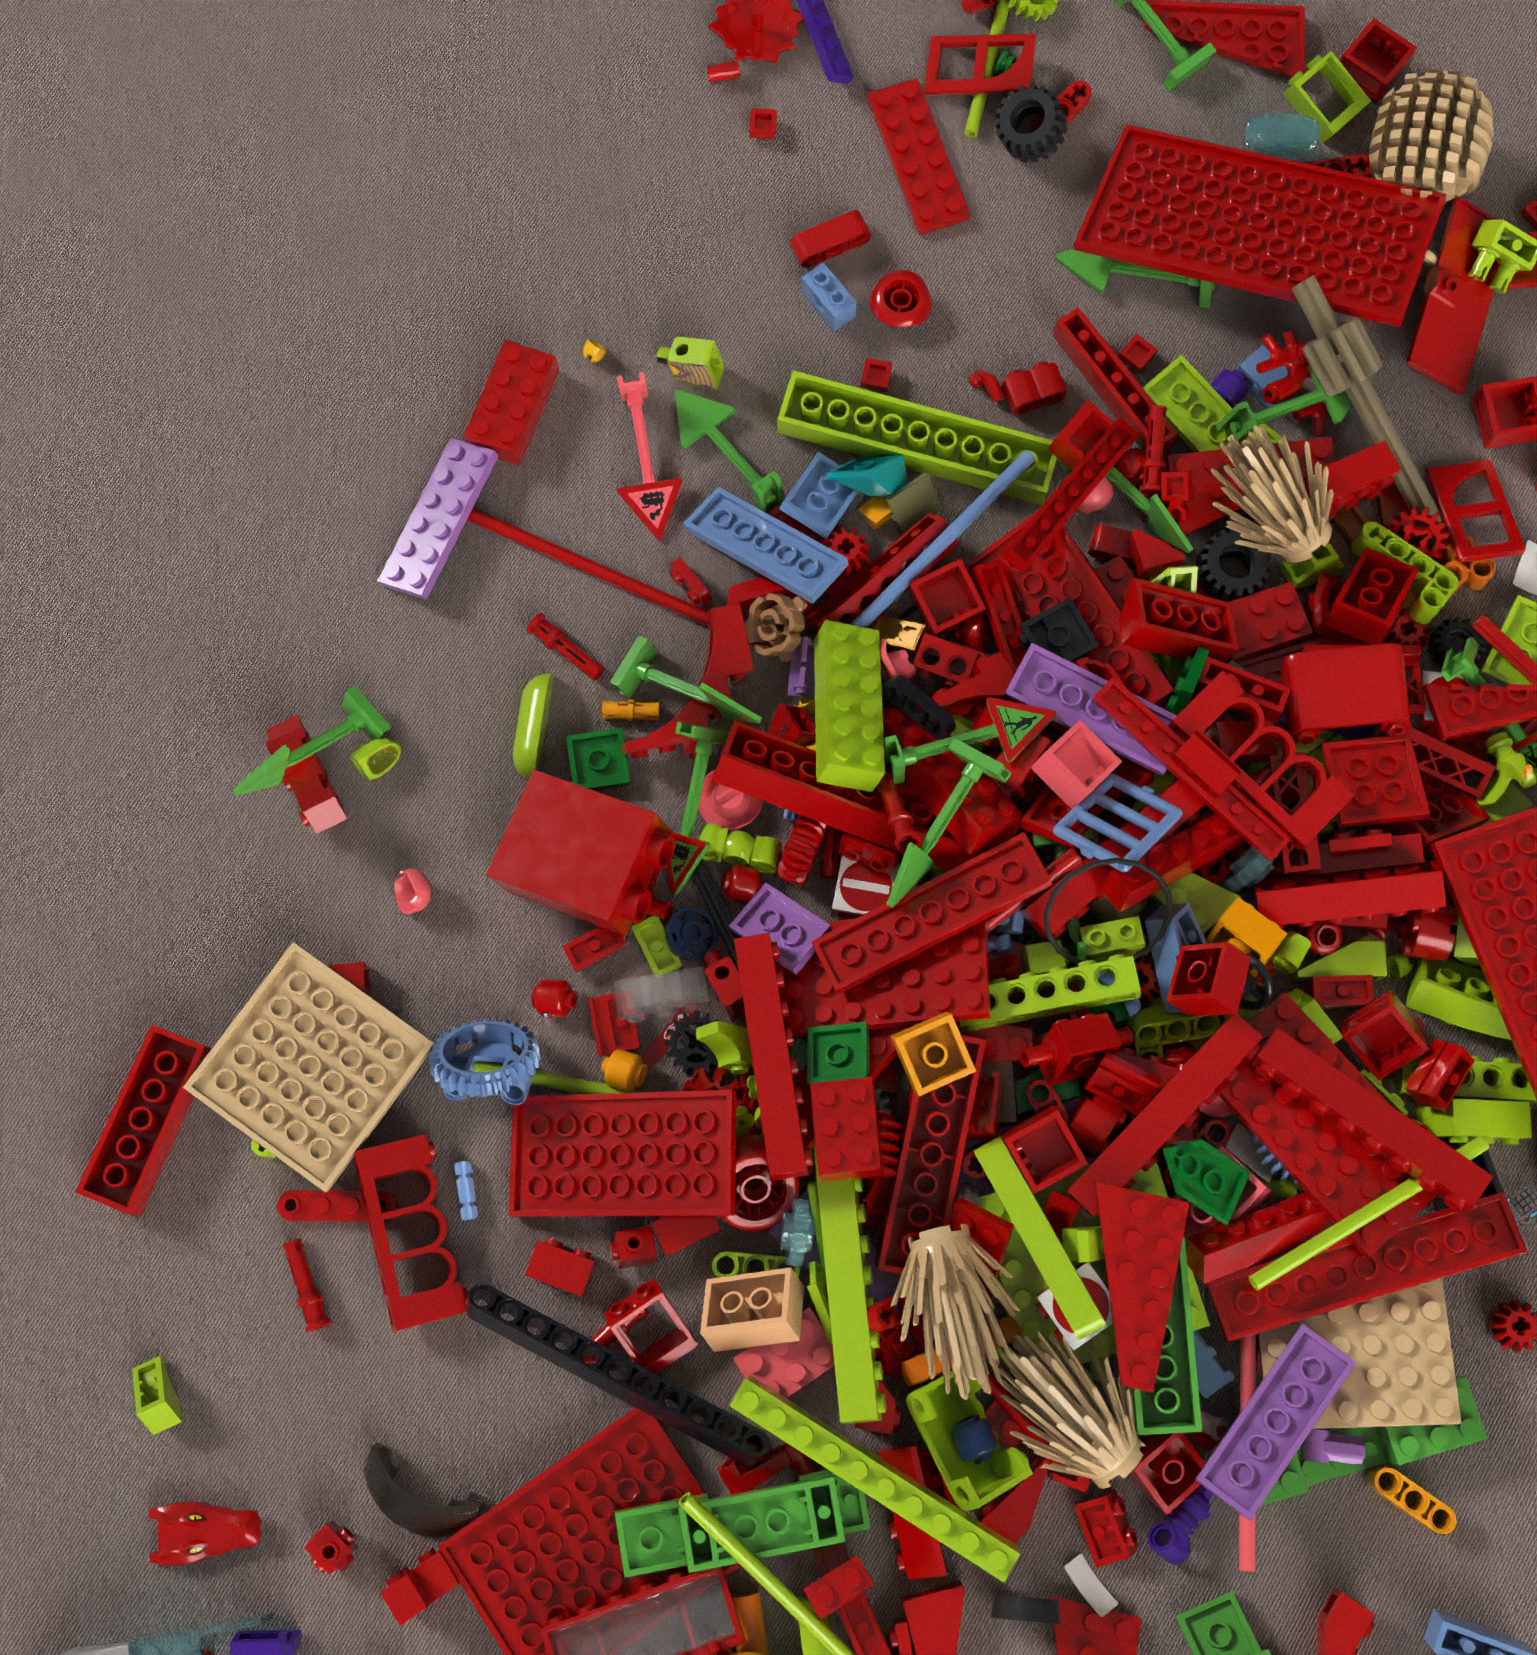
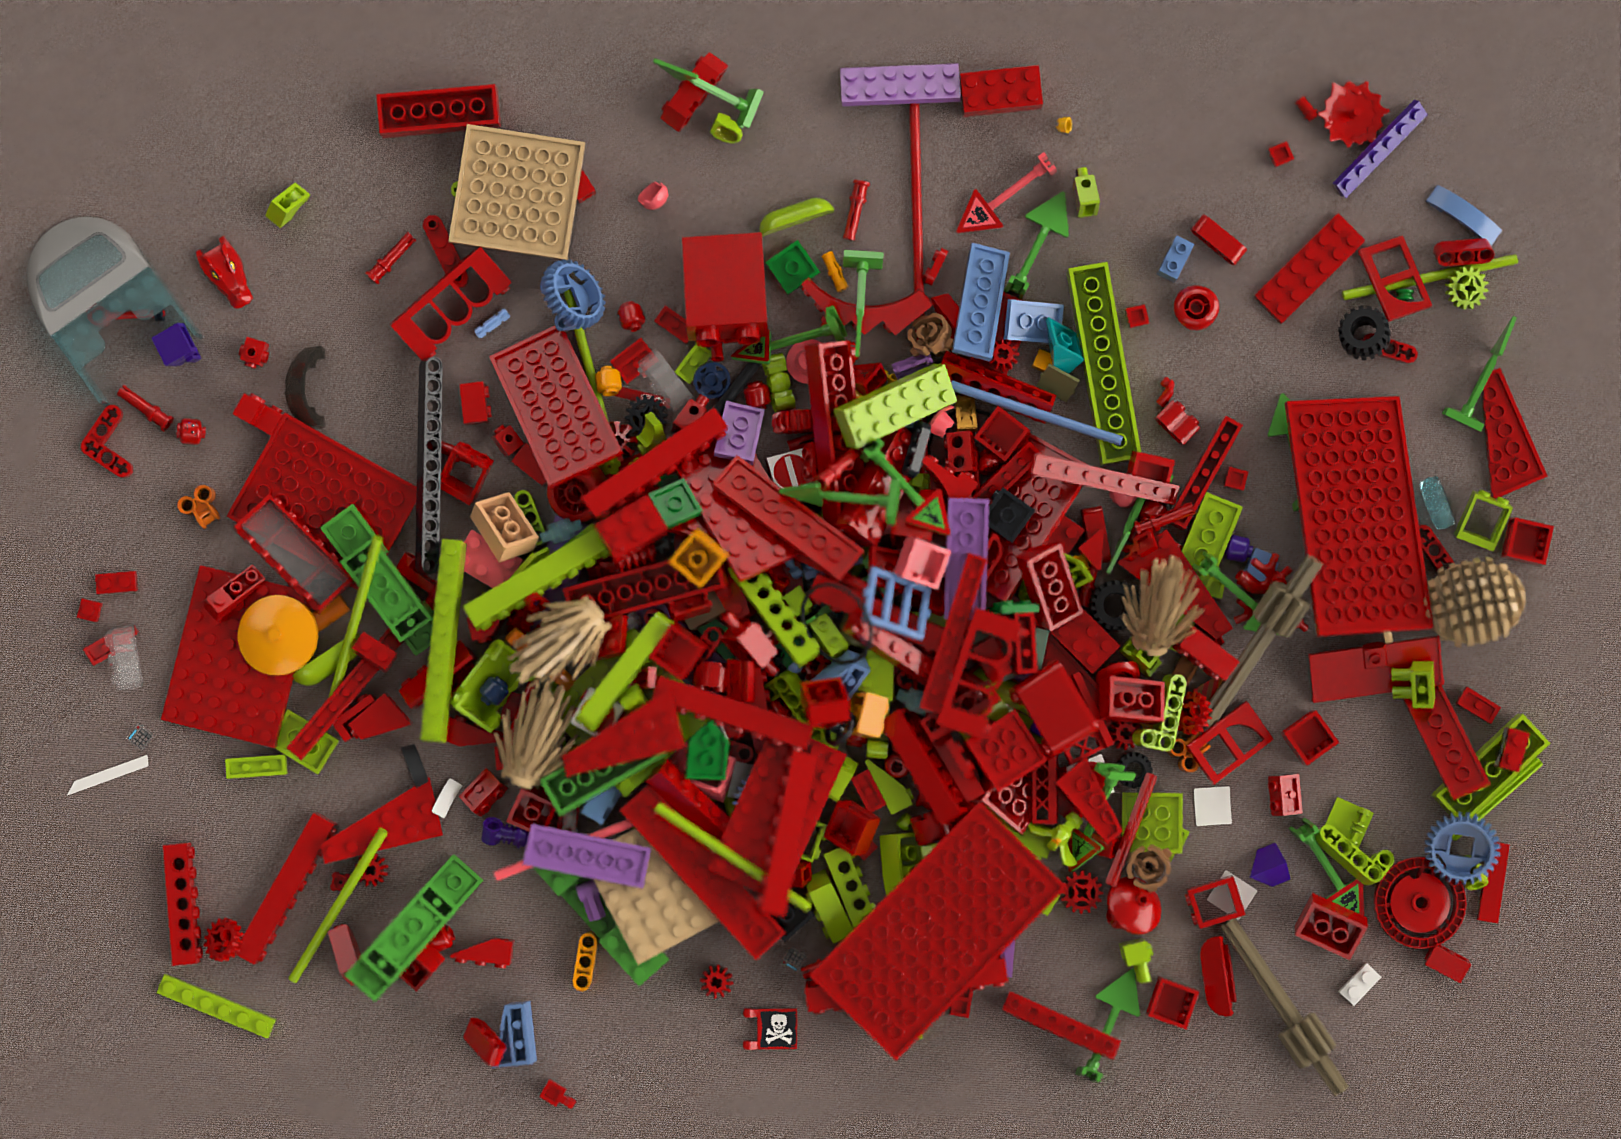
camera: 55 degrees right, 10 degrees up
(1208, 763) = (958, 640): red tile -> none
(1439, 1074) = (841, 869): red brick -> none

